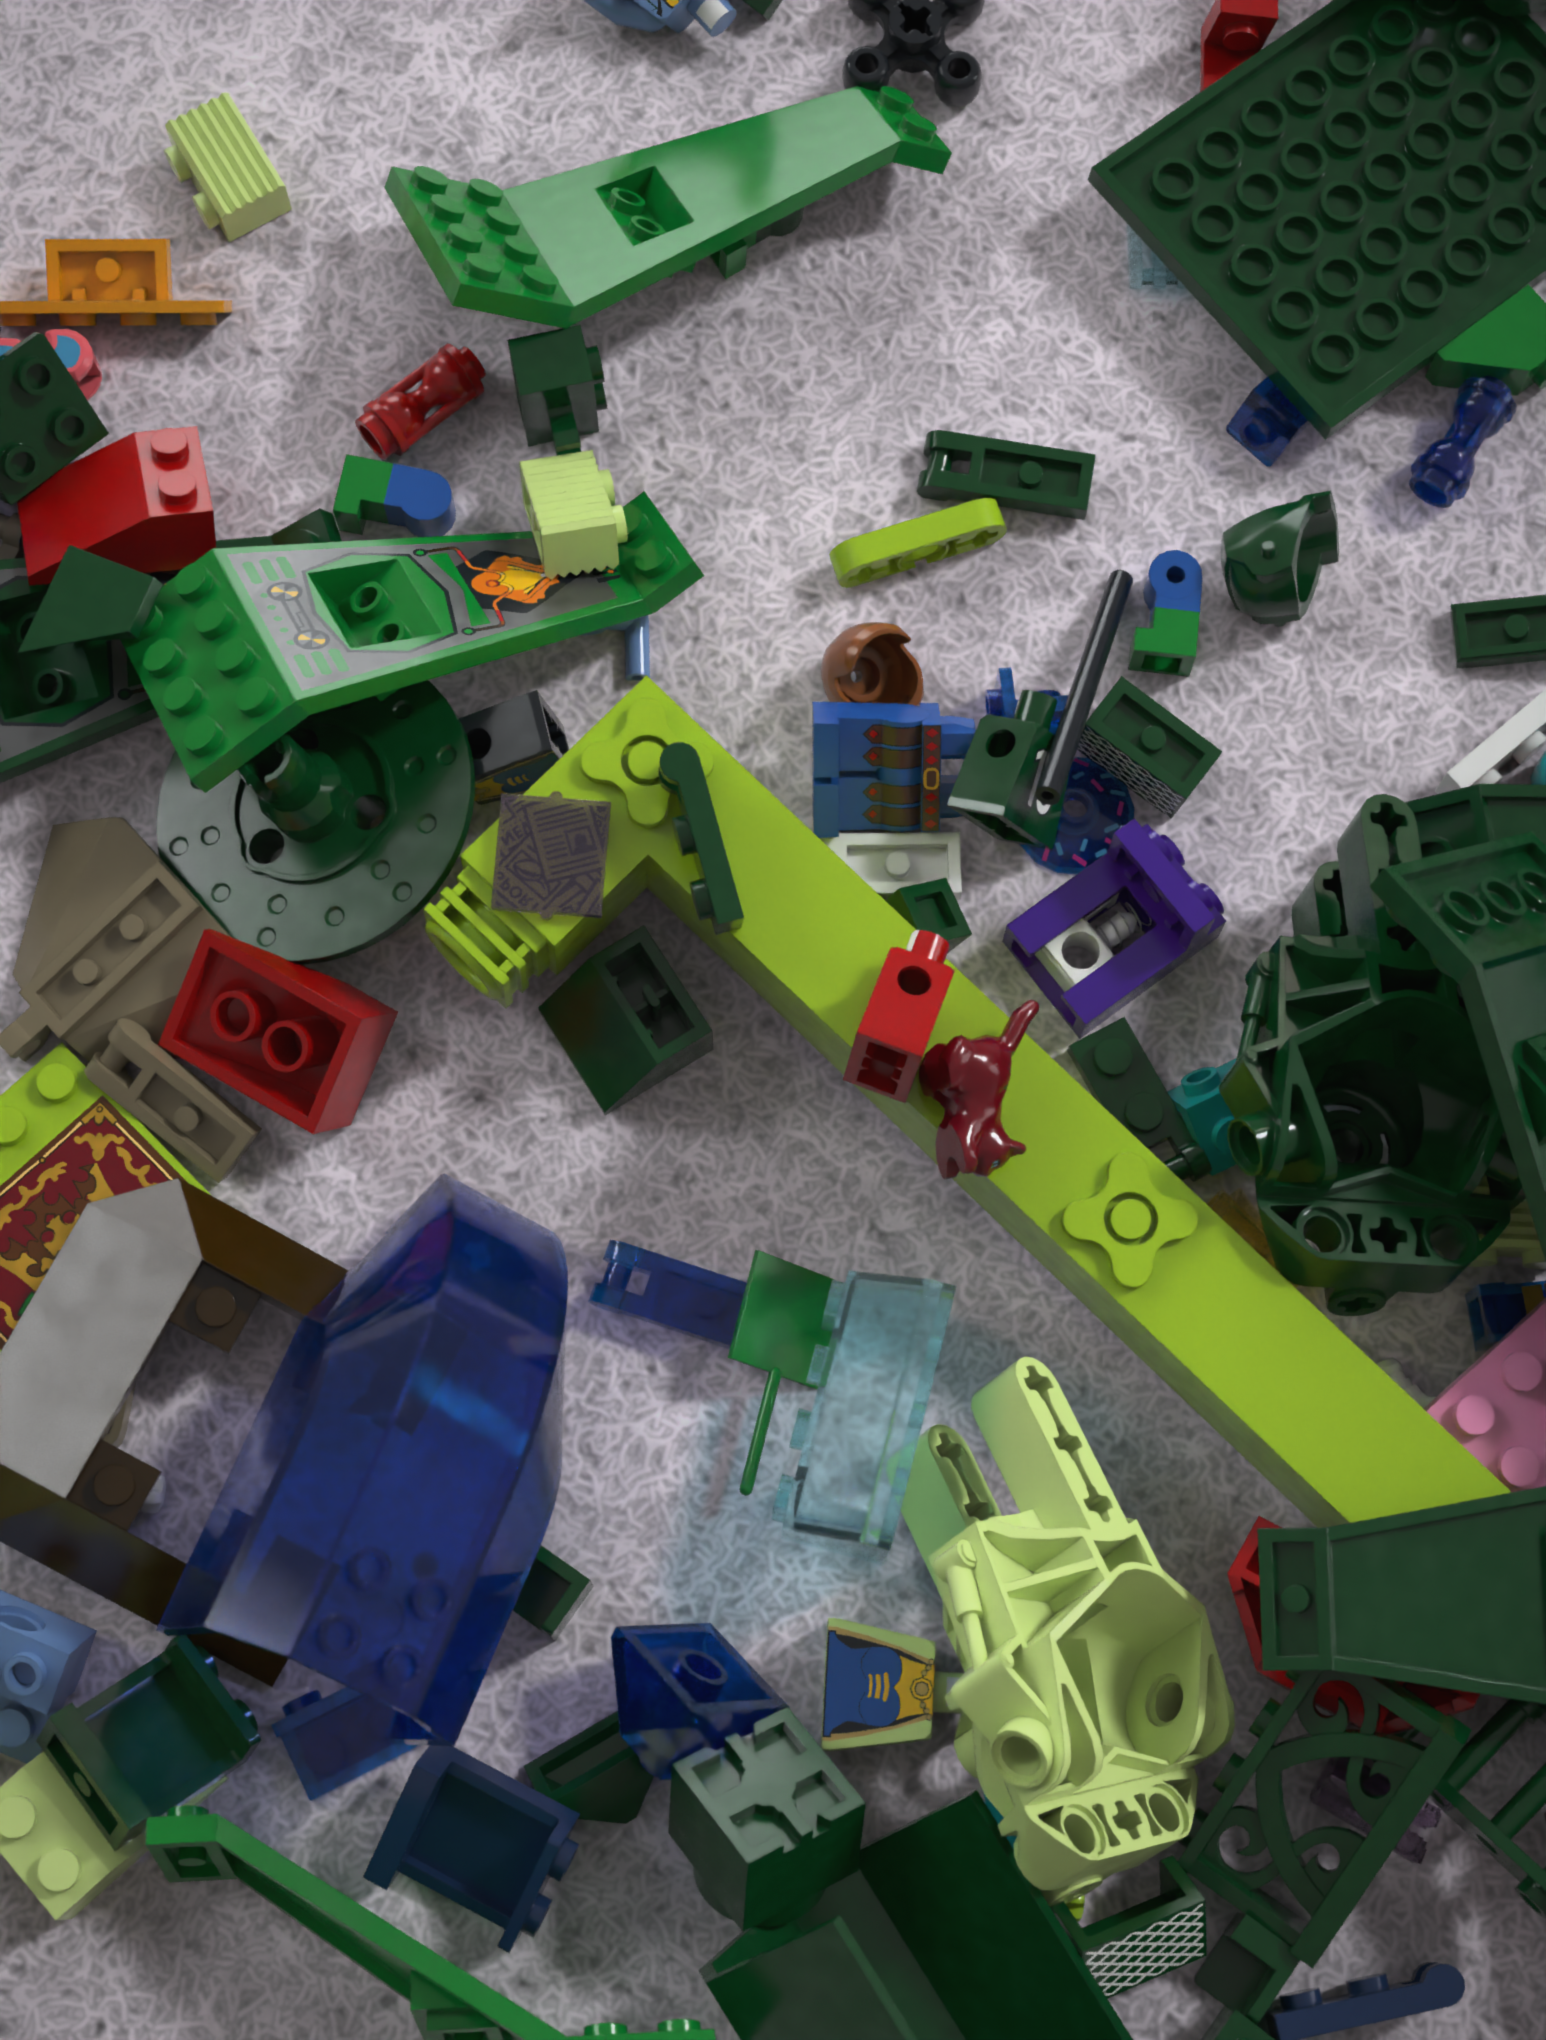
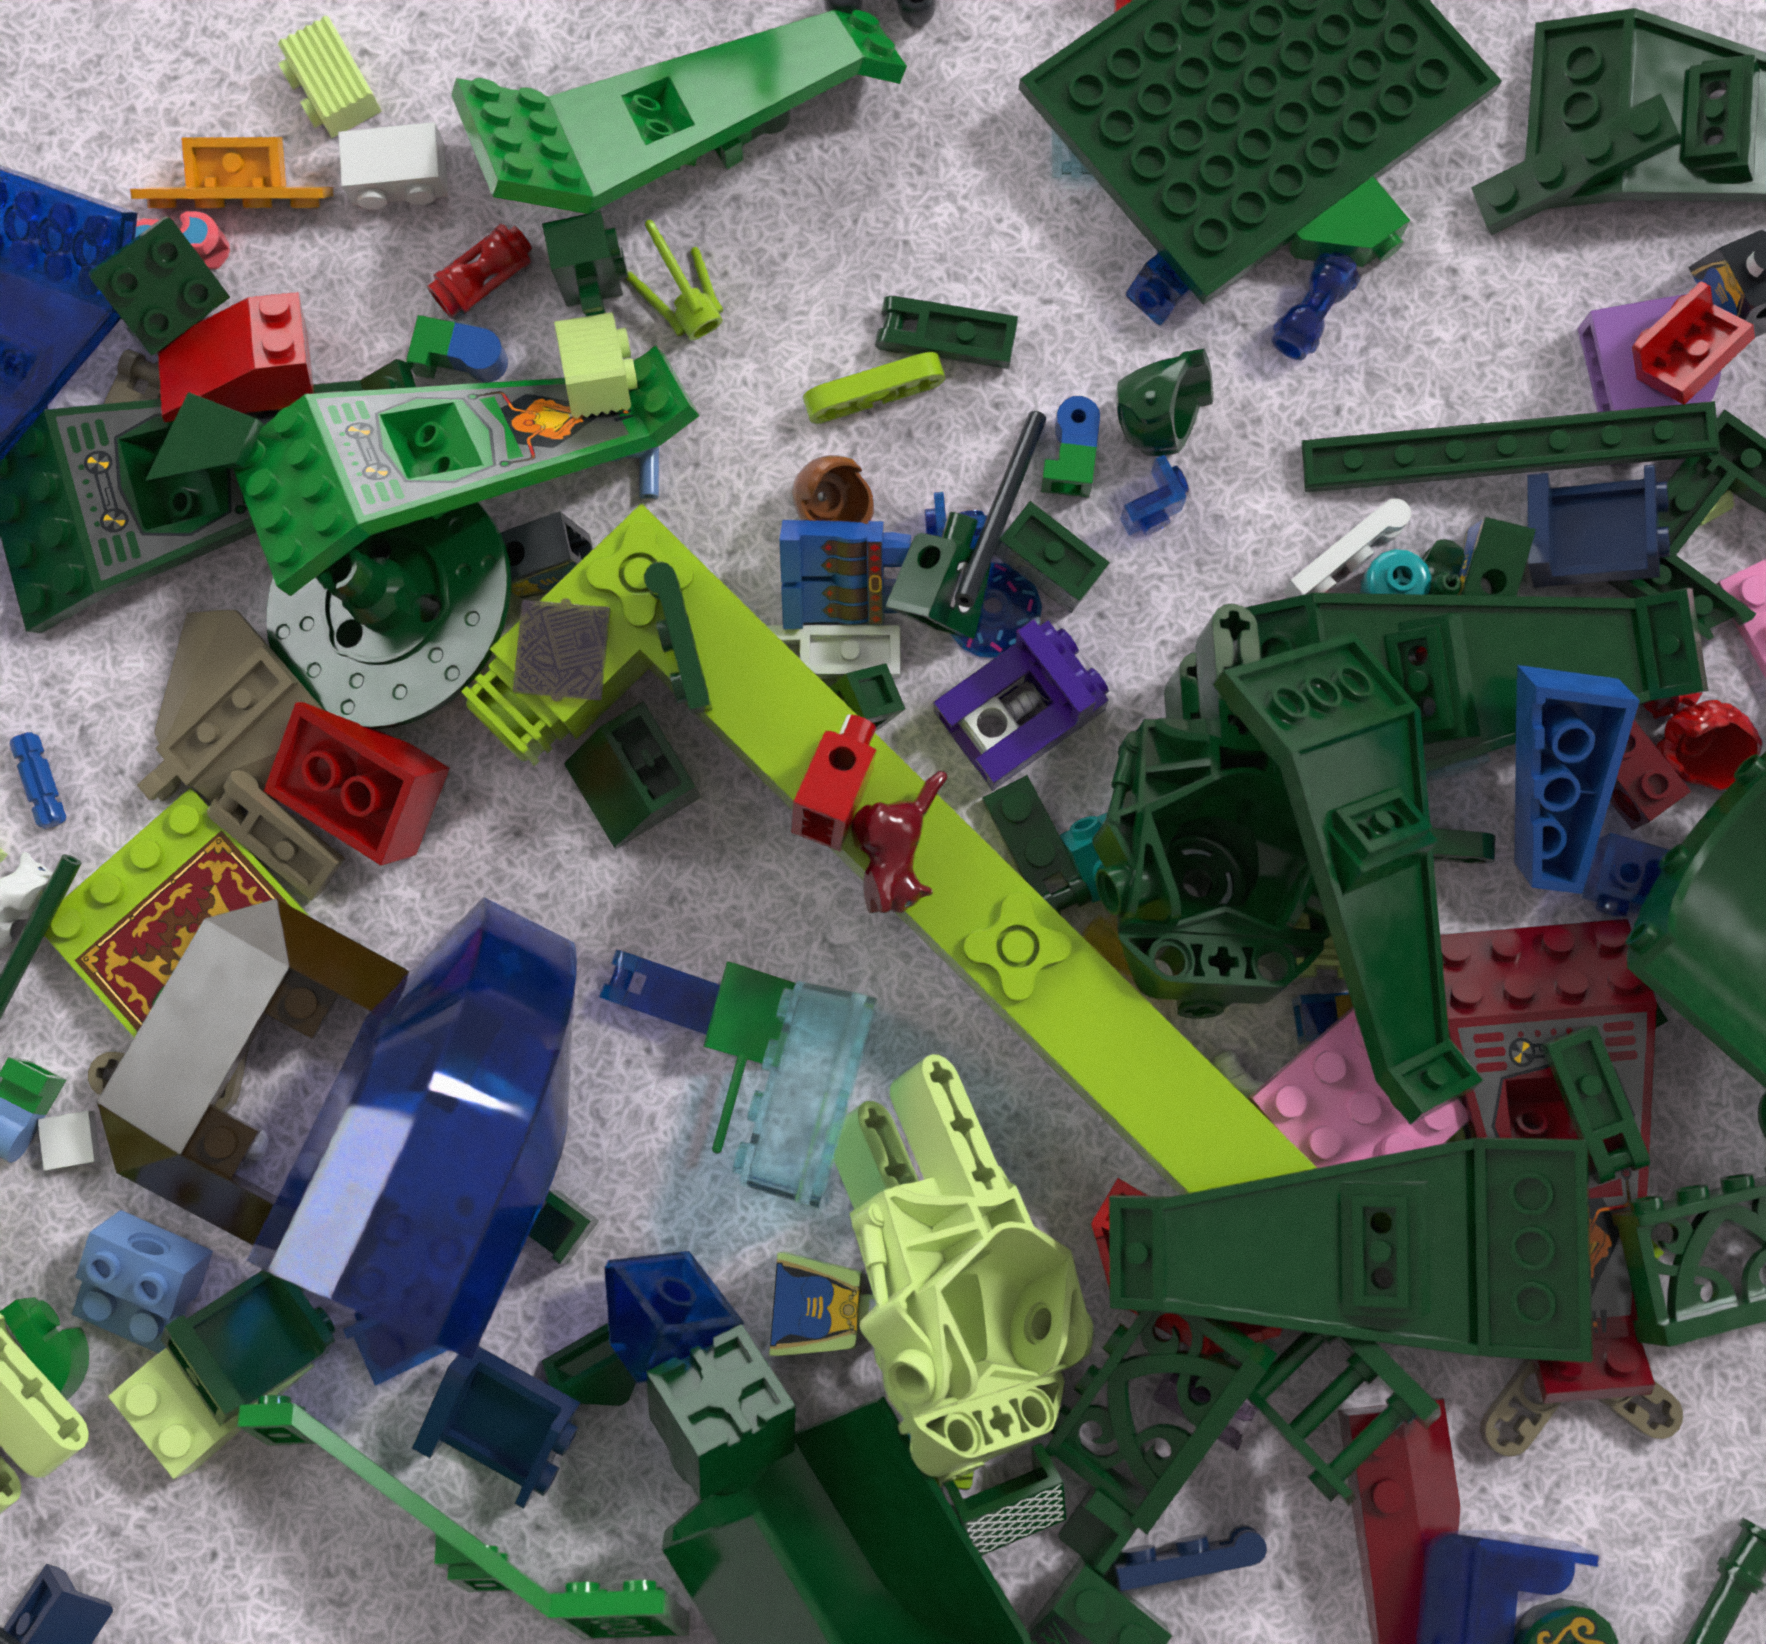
camera: 10 degrees right, 5 degrees up
(310, 273) = (393, 165): none -> white brick
(693, 449) = (696, 311): none -> lime plant
(1272, 689) = (1153, 510): none -> clear blue bracket

